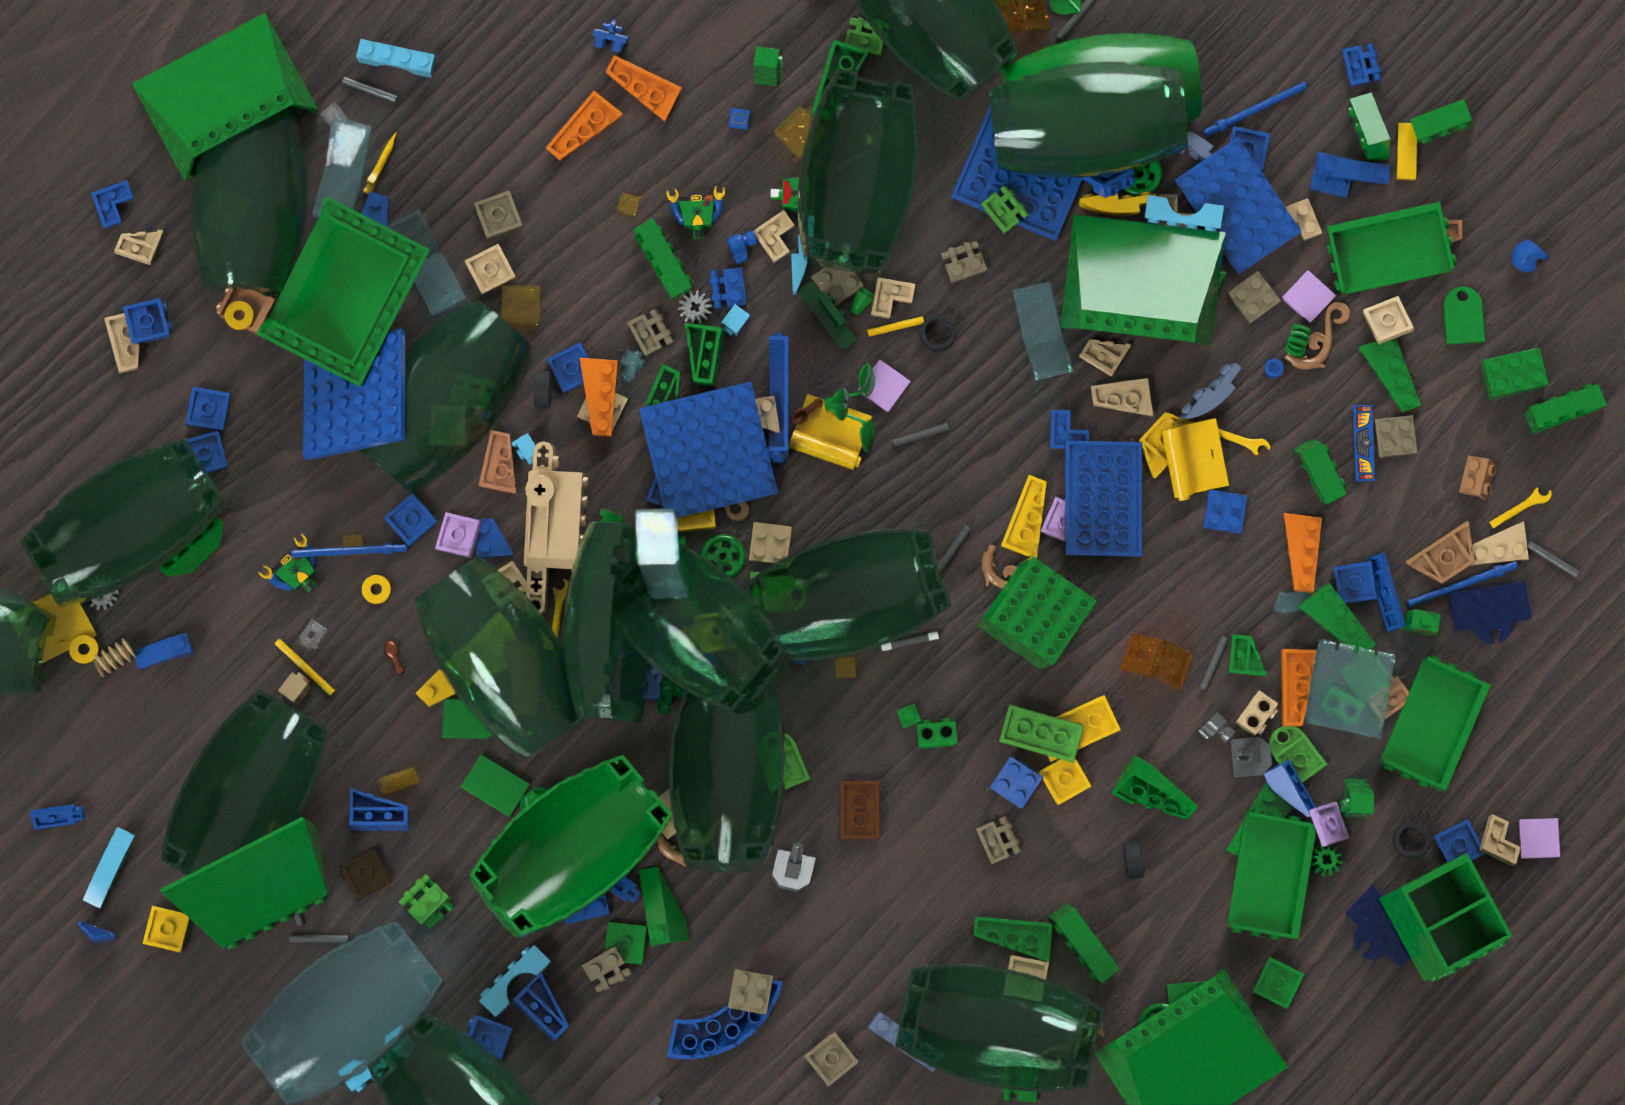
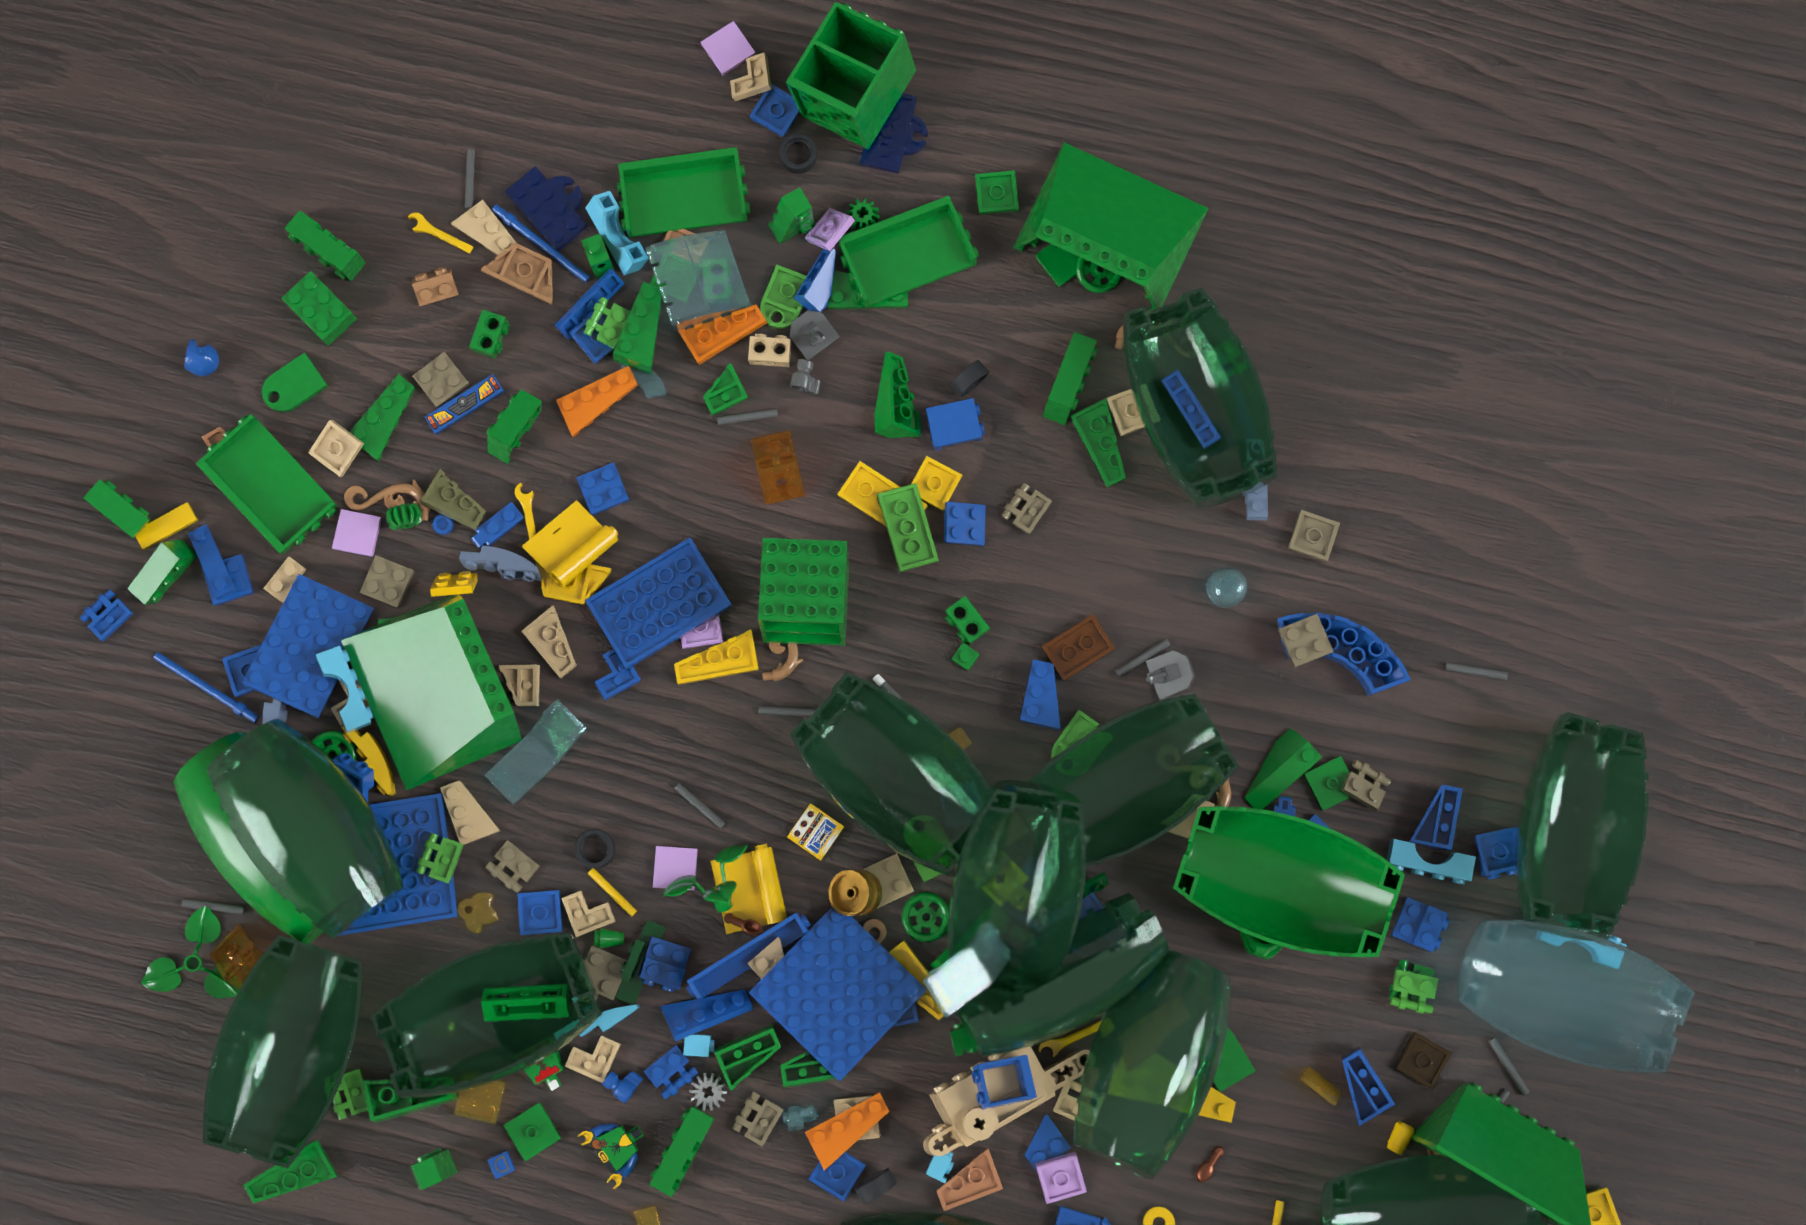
camera: 120 degrees left, 0 degrees up
(320, 816) = (1400, 1137): none -> yellow piece
(470, 940) = (1420, 925): none -> blue plate
(495, 785) = (1267, 993): green tile -> none
(551, 545) = (1024, 1077): none -> blue window
(749, 157) = (532, 1131): none -> green plate
(760, 324) = (699, 1014): none -> blue wing
(776, 511) = (855, 892): none -> pearl gold wheel
(814, 332) = (664, 964): none -> blue plate
(819, 856) = (1142, 658): none -> dark grey bar
(834, 961) = (1226, 587): none -> clear light blue cylinder
(838, 753) = (1040, 698): none -> blue wedge
(843, 512) = (815, 832): none -> tile
(850, 208) = (526, 1002): none -> green brick
(914, 261) = (539, 912): none -> blue plate
(944, 217) = (480, 913): none -> clear yellow plate
(996, 1023) = (1191, 409): none -> blue plate
(1027, 250) = (466, 814): none -> tan wing
(1103, 825) = (954, 423): none -> blue panel
(1217, 347) = (457, 584): none -> yellow plate
(1246, 411) = (497, 526): none -> blue hinge
(1286, 386) = (452, 502): none -> olive wing
(1354, 598) = (613, 325): none -> bright green plate
(1413, 493) = (484, 333): none -> green brick
(1452, 648) = (605, 215): none -> medium azure arch

